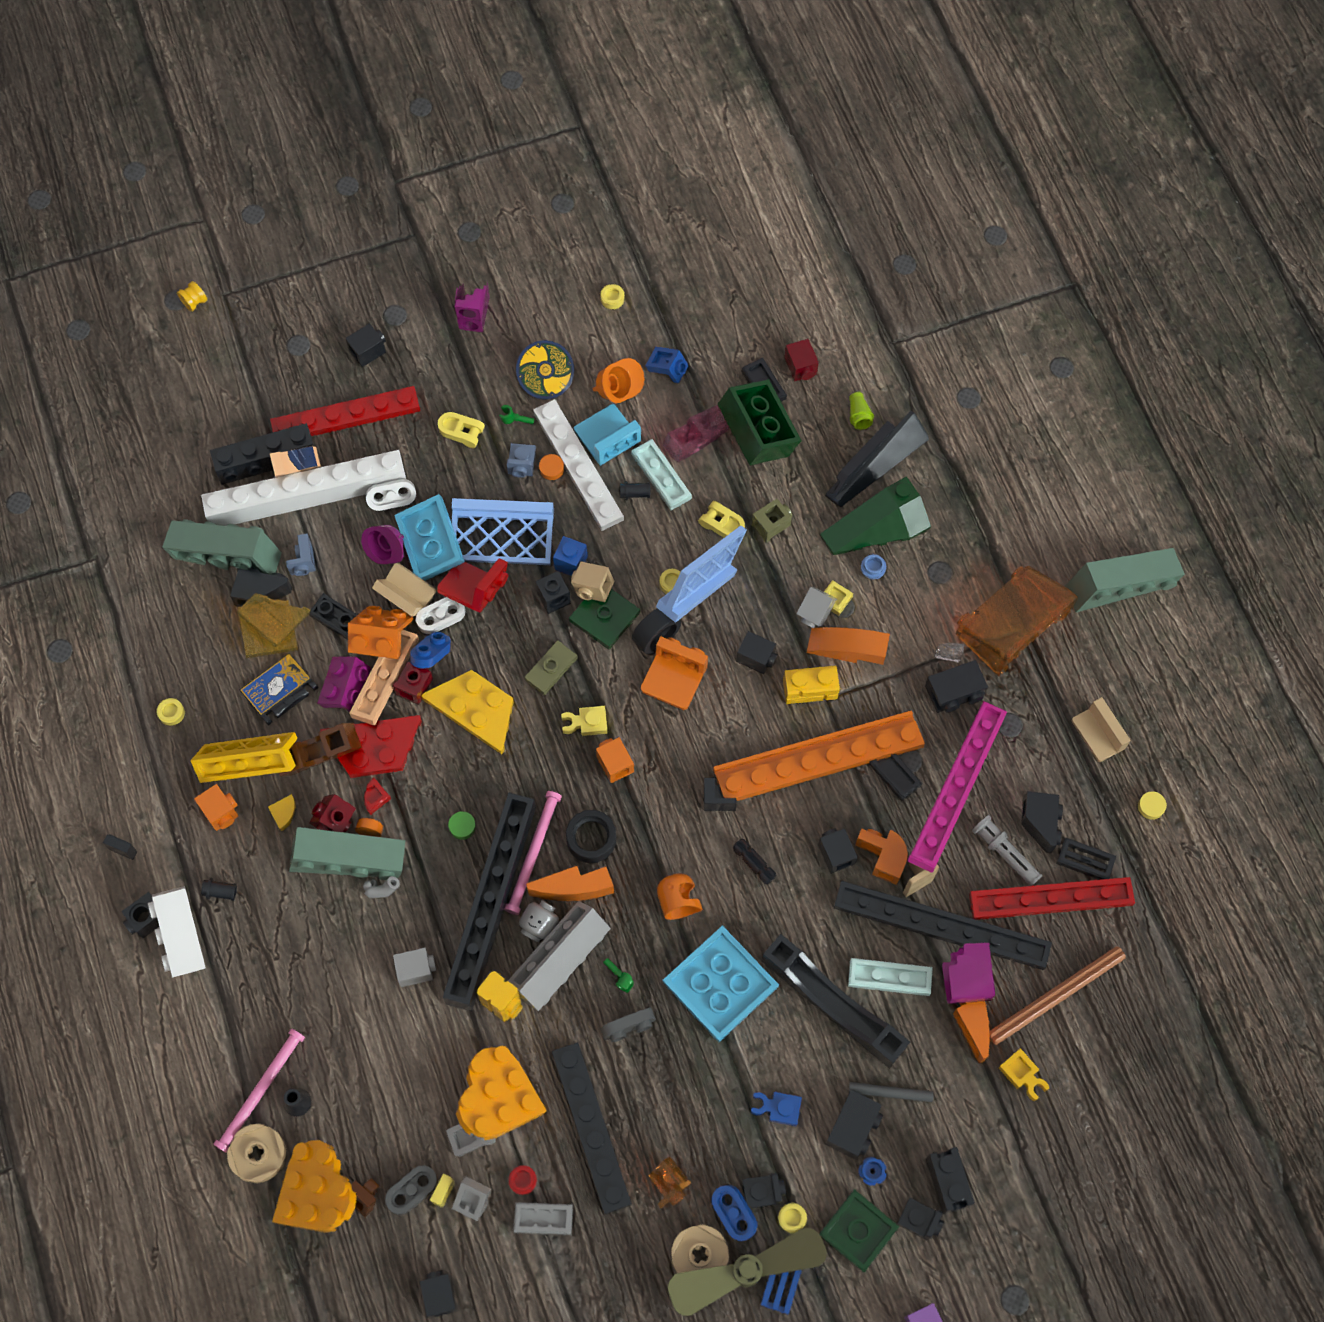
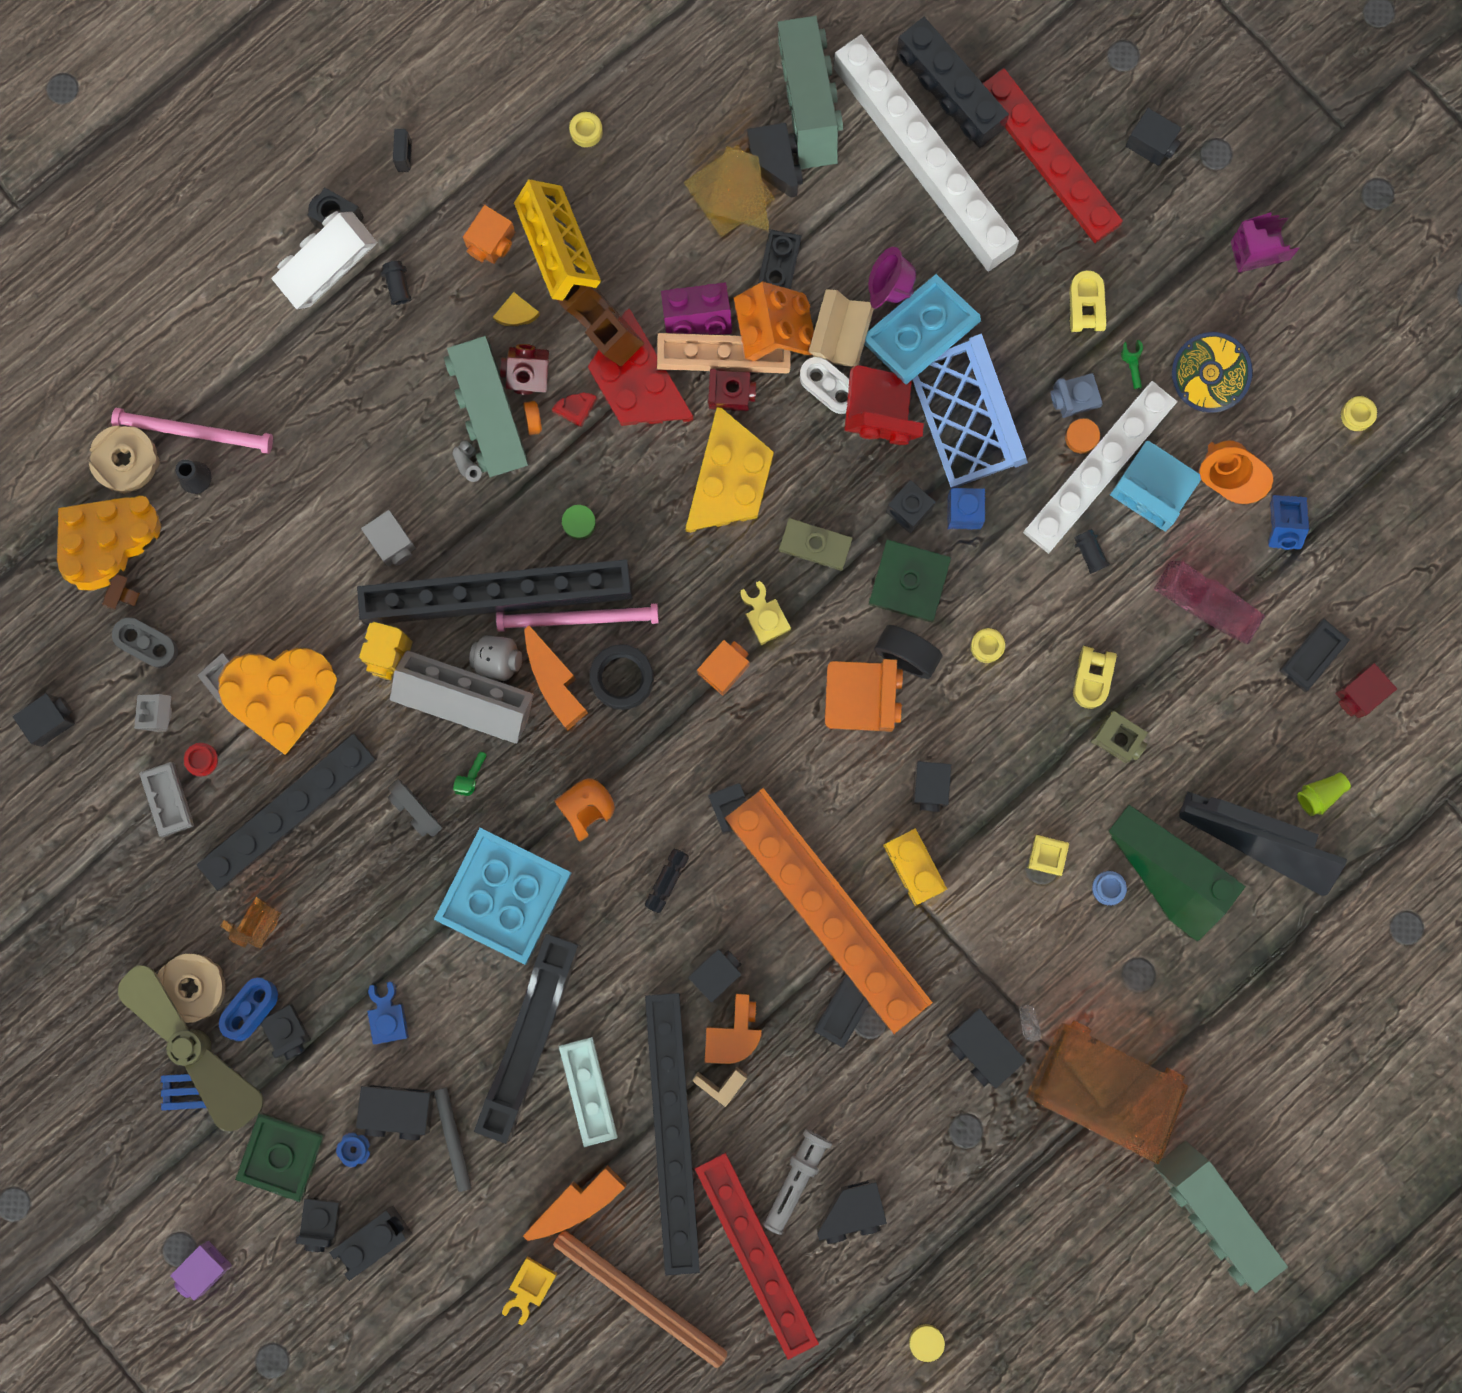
camera: 75 degrees right, 15 degrees up
(278, 688) = (663, 238): piece -> none
(295, 461) = (948, 122): leg -> none
(305, 557) = (841, 192): sand blue bracket -> none
(391, 496) = (961, 259): white plate -> none
(430, 650) = (780, 396): blue plate -> none
(442, 1191) = (155, 677): light yellow tile -> none
(592, 581) = (940, 548): tan brick -> none
(661, 474) = (1129, 575): light aqua tile -> none
(702, 577) = (991, 681): light blue fence -> none
(759, 422) = (1246, 670): dark green brick -> none
(792, 1217) = (269, 1076): light yellow tile -> none
(816, 607) = (1020, 836): light grey brick -> none
(849, 644) = (988, 894): orange slope -> none
(957, 787) = (846, 1094): dark pink tile -> none
(969, 974) = (611, 1186): magenta piece -> none
(1086, 860) = (824, 1251): black tile -> none
(1101, 730) = (999, 1248): tan panel -> none

